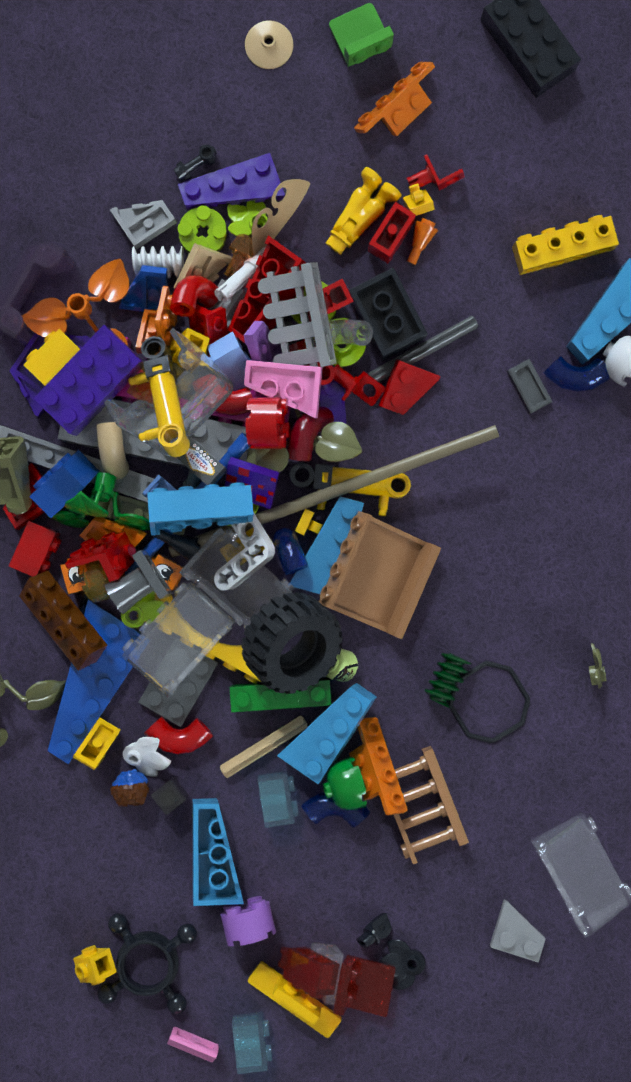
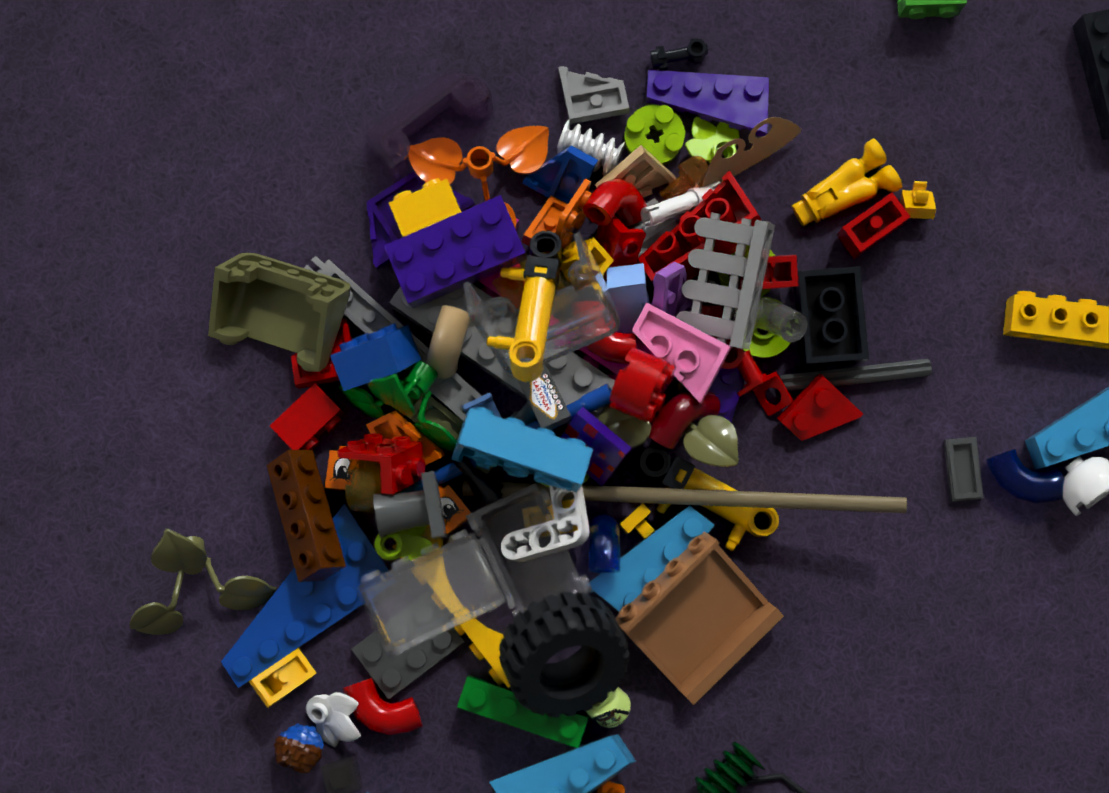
camera: 20 degrees right, 5 degrees down
(263, 746) = (476, 765): tan axle -> none
(401, 105) = (943, 84): orange bracket -> none
(423, 234) = (909, 242): orange cone -> none
(429, 175) = (944, 177): red bracket -> none

